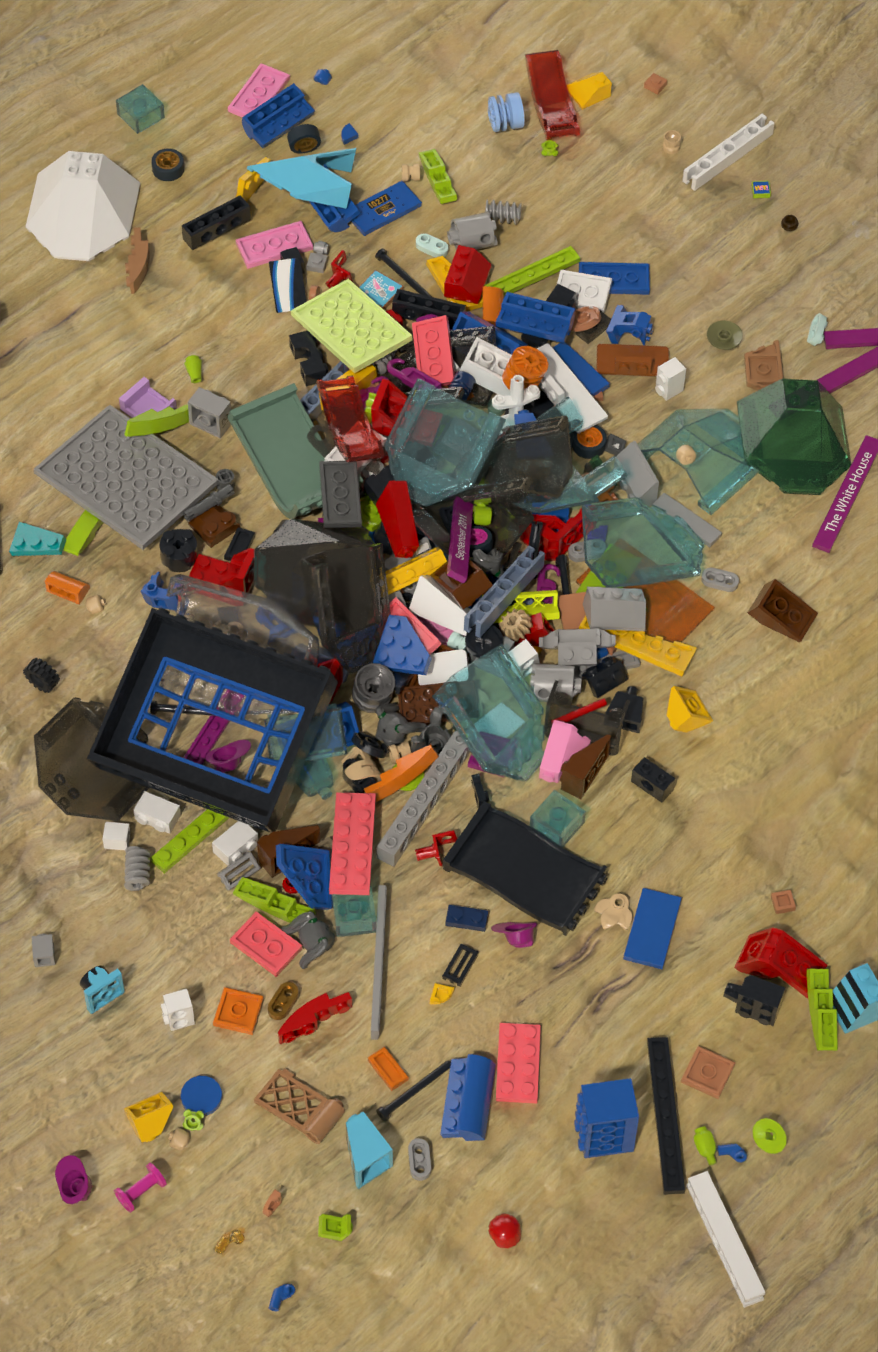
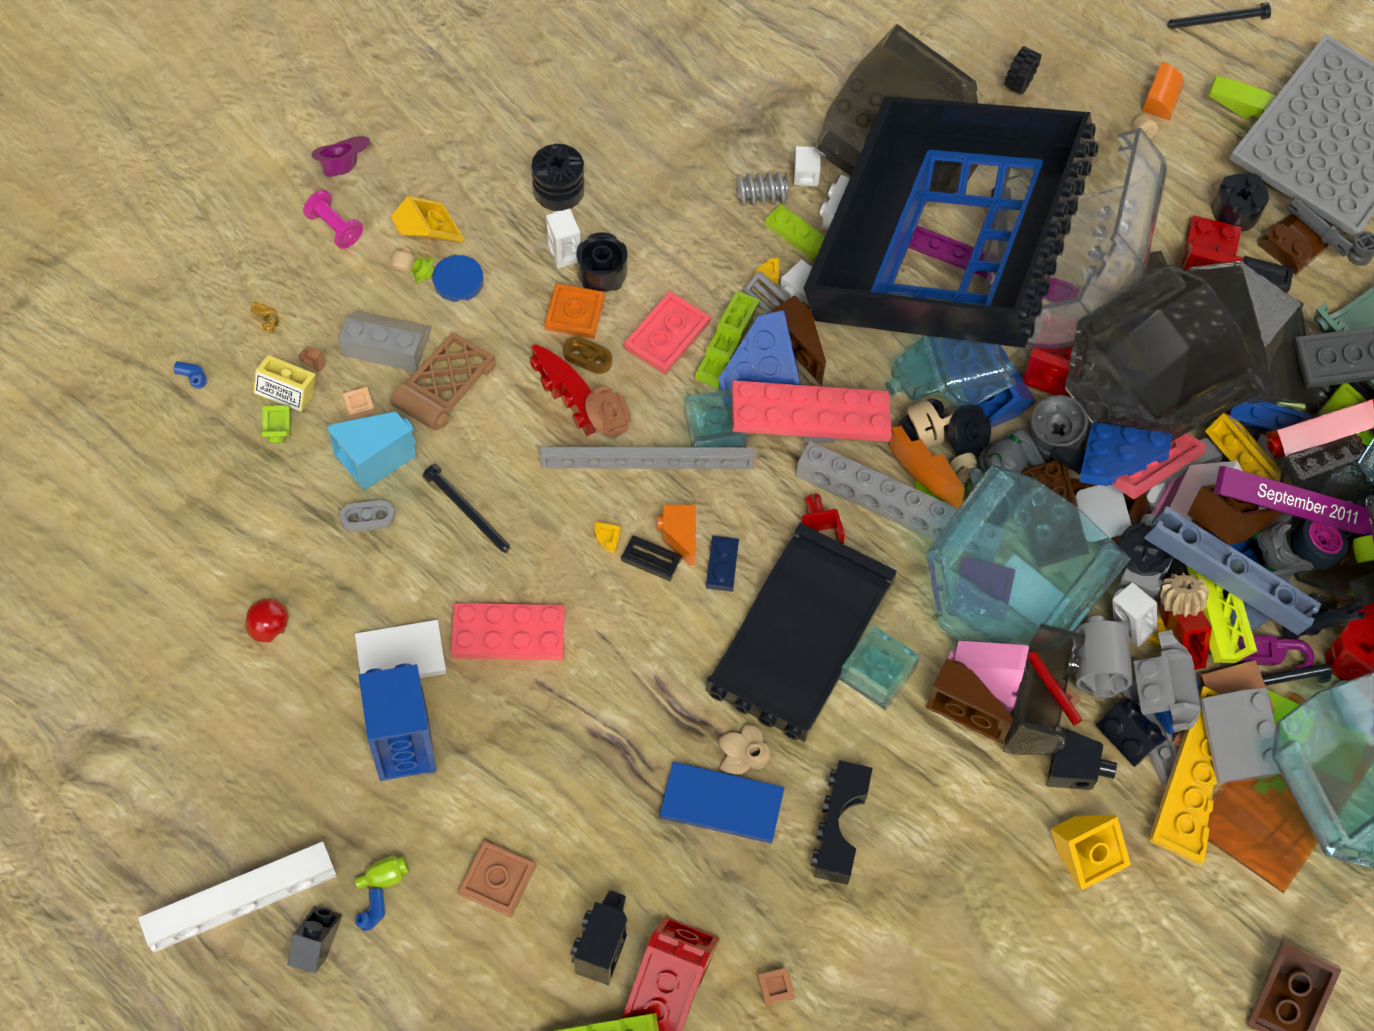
camera: 85 degrees right, 5 degrees up
(36, 541) = (1221, 52): teal wing -> none
(43, 950) = (645, 105): light grey brick -> none
(100, 987) = (597, 156): medium azure piece -> none
(117, 1023) = (558, 177): none -> black wheel
(156, 595) = (1176, 181): blue tile -> none
(202, 983) = (602, 262): none -> black brick
(210, 872) = (770, 269): none -> yellow tile
(229, 756) = (932, 271): magenta piece -> none
(257, 1147) = (383, 340): none -> light grey slope
(300, 1218) = (284, 383): none -> brick
(313, 934) = (675, 379): dark grey hair -> none
(314, 1169) = (358, 402): none -> light nougat tile
(338, 985) = (607, 411): none -> nougat tile
(388, 1068) = (497, 478): orange tile -> none
(442, 941) = (679, 530): none -> orange slope
(468, 1098) = (451, 570): blue brick -> none
(479, 793) = (911, 571): black plate -> none
(517, 934) = (701, 618): magenta piece -> none
(534, 1136) = (402, 644): none -> white tile
(653, 779) = (962, 798): black brick -> none
(665, 1116) = (428, 818): black plate -> none
(691, 860) = (836, 855): none -> black arch
(720, 579) = (1336, 901): light grey plate -> none
(756, 1186) = (313, 939): none -> slope
(763, 1138) = (393, 960): lime piece -> none

